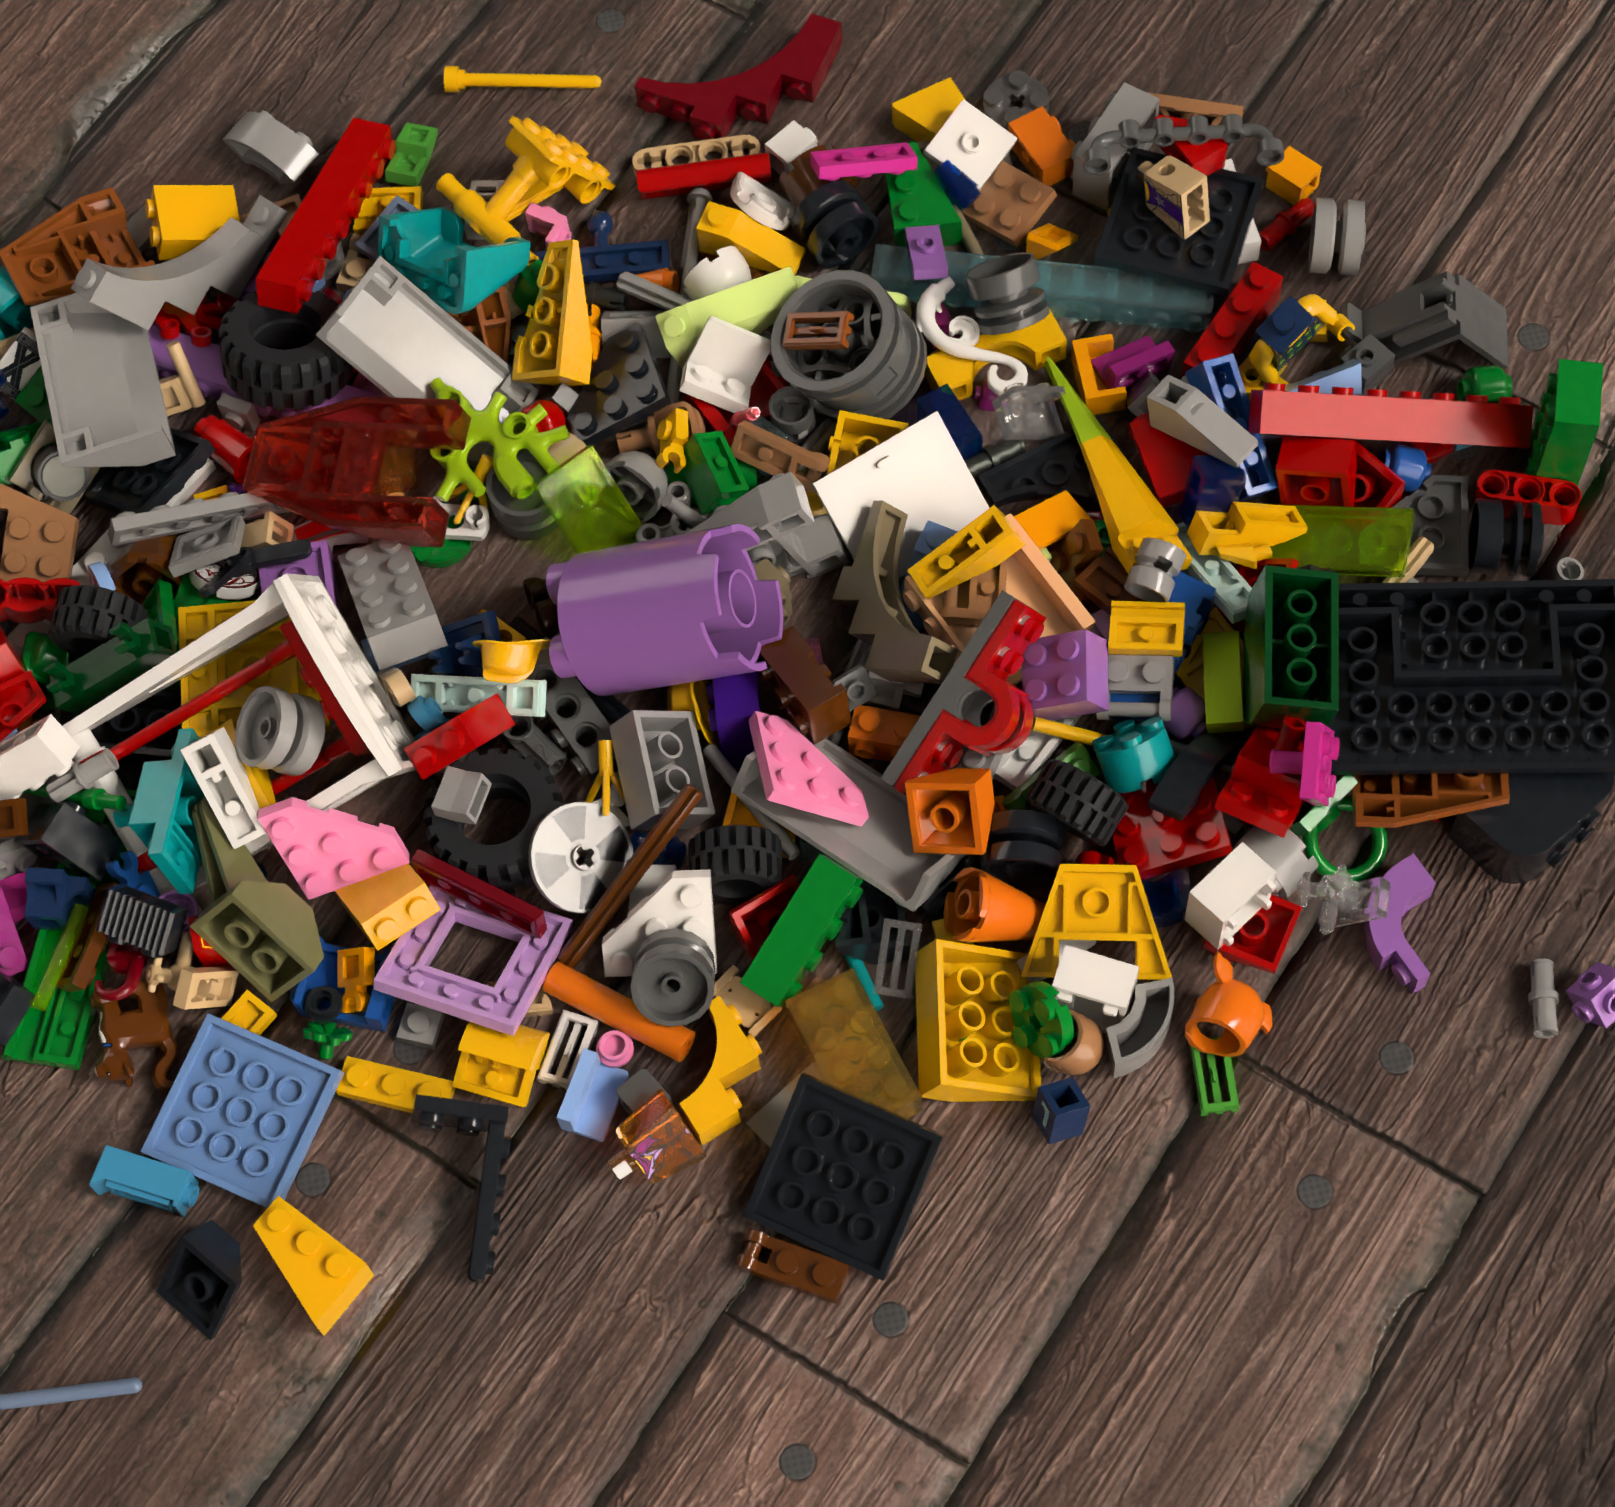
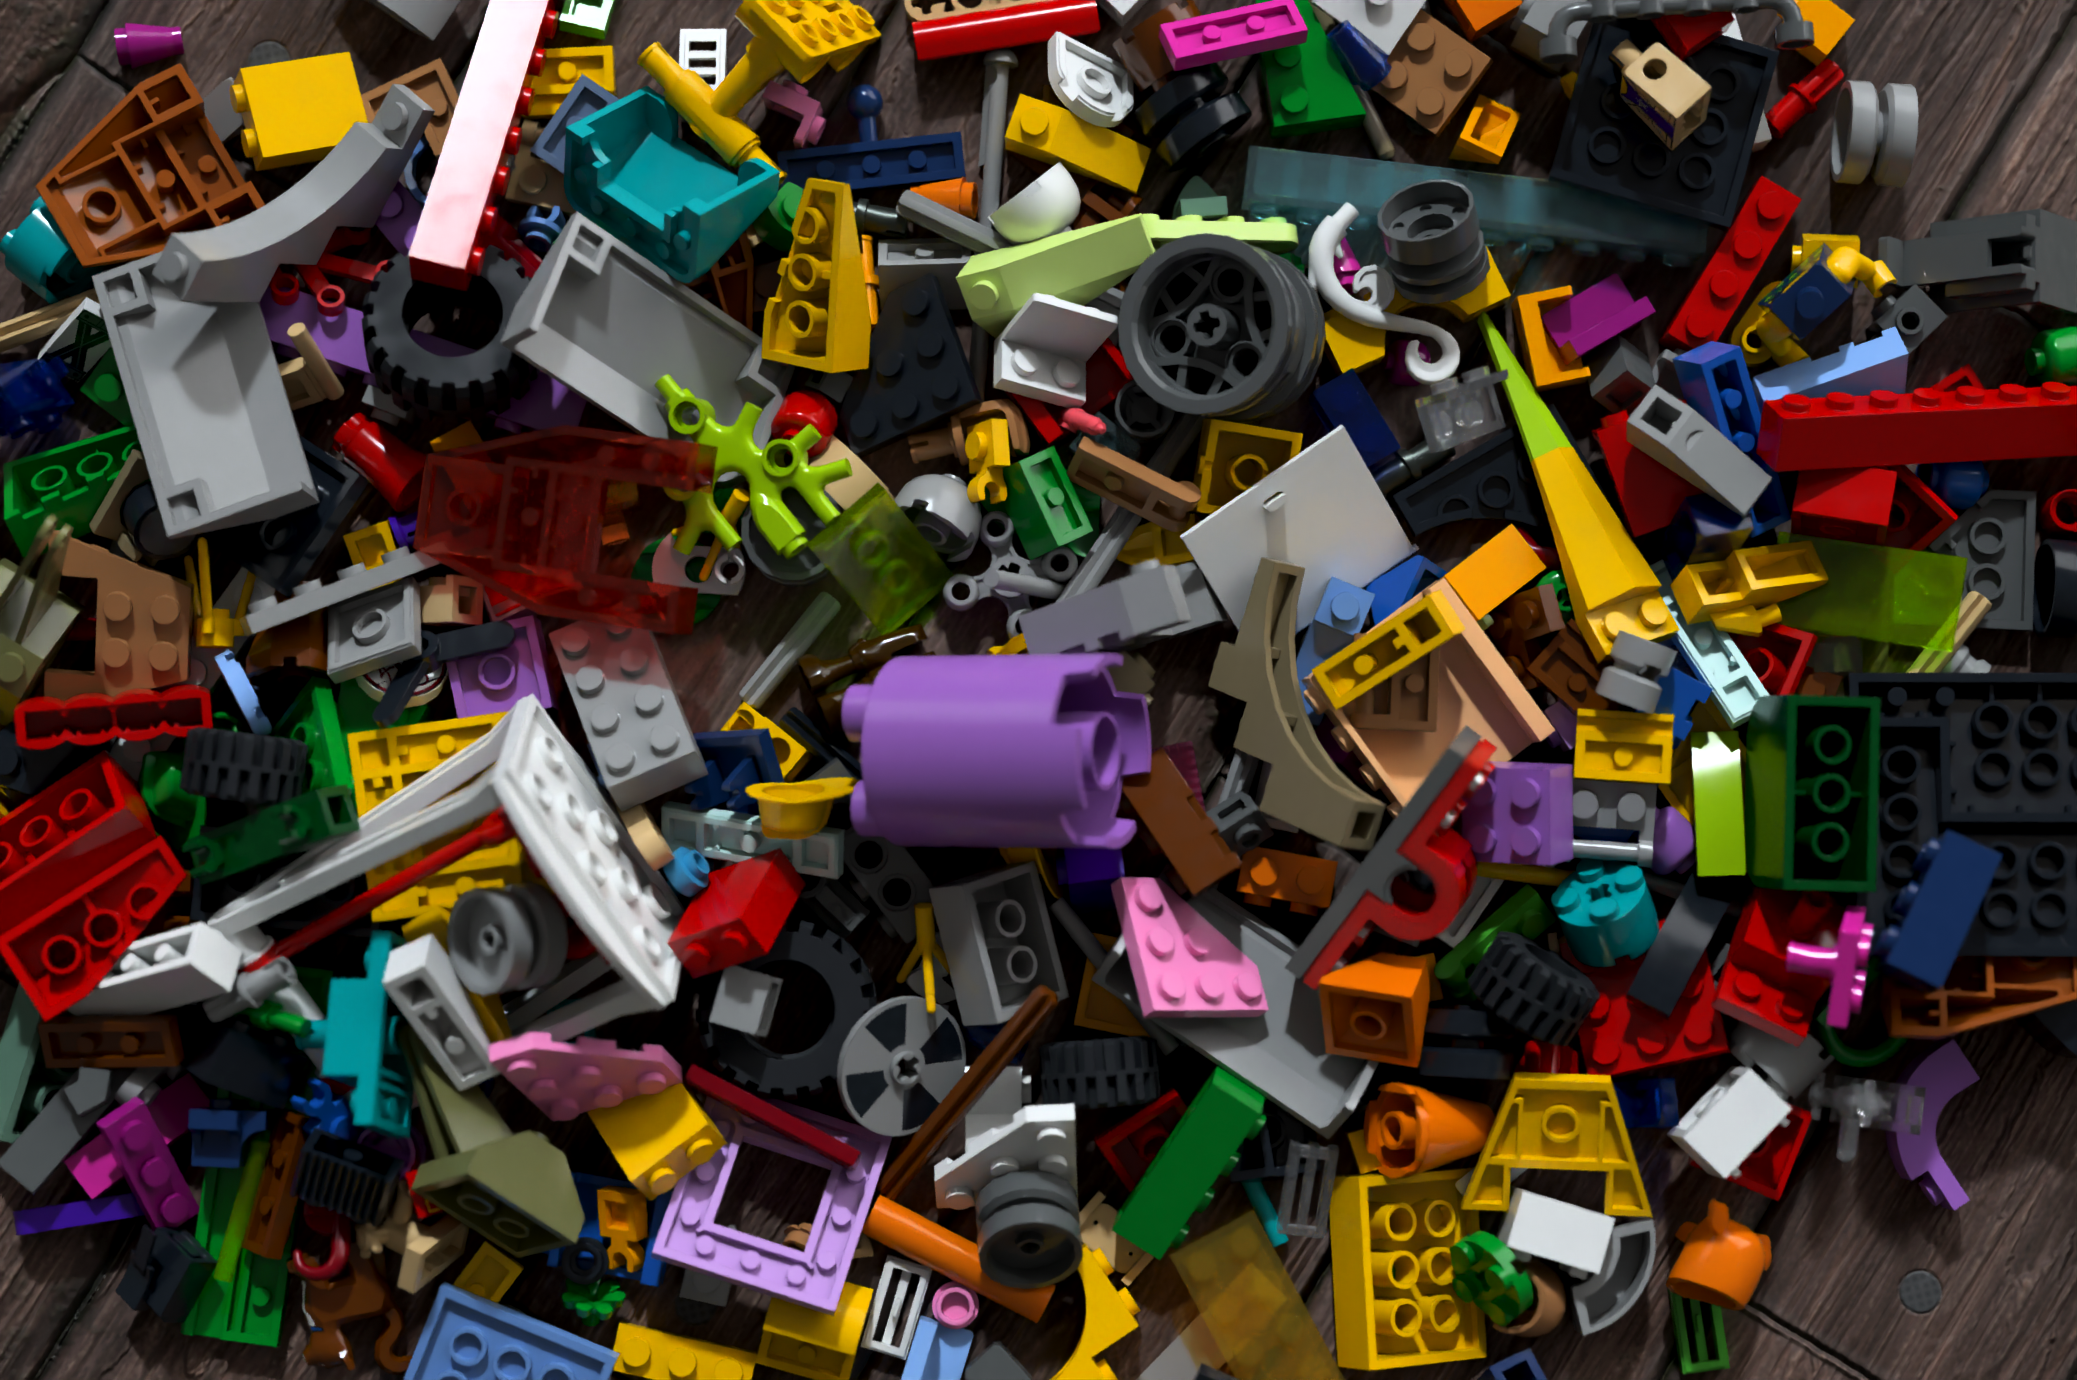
camera: 10 degrees left, 20 degrees up
(87, 183) = (146, 43): none -> magenta cone
(89, 547) = (214, 626): none -> yellow plant
(513, 584) = (789, 649): none -> light grey axle
(839, 331) = (1219, 328): dark orange tile -> none
(926, 252) = (1319, 165): medium lavender plate -> none
(1385, 724) = (1935, 911): none -> dark blue brick

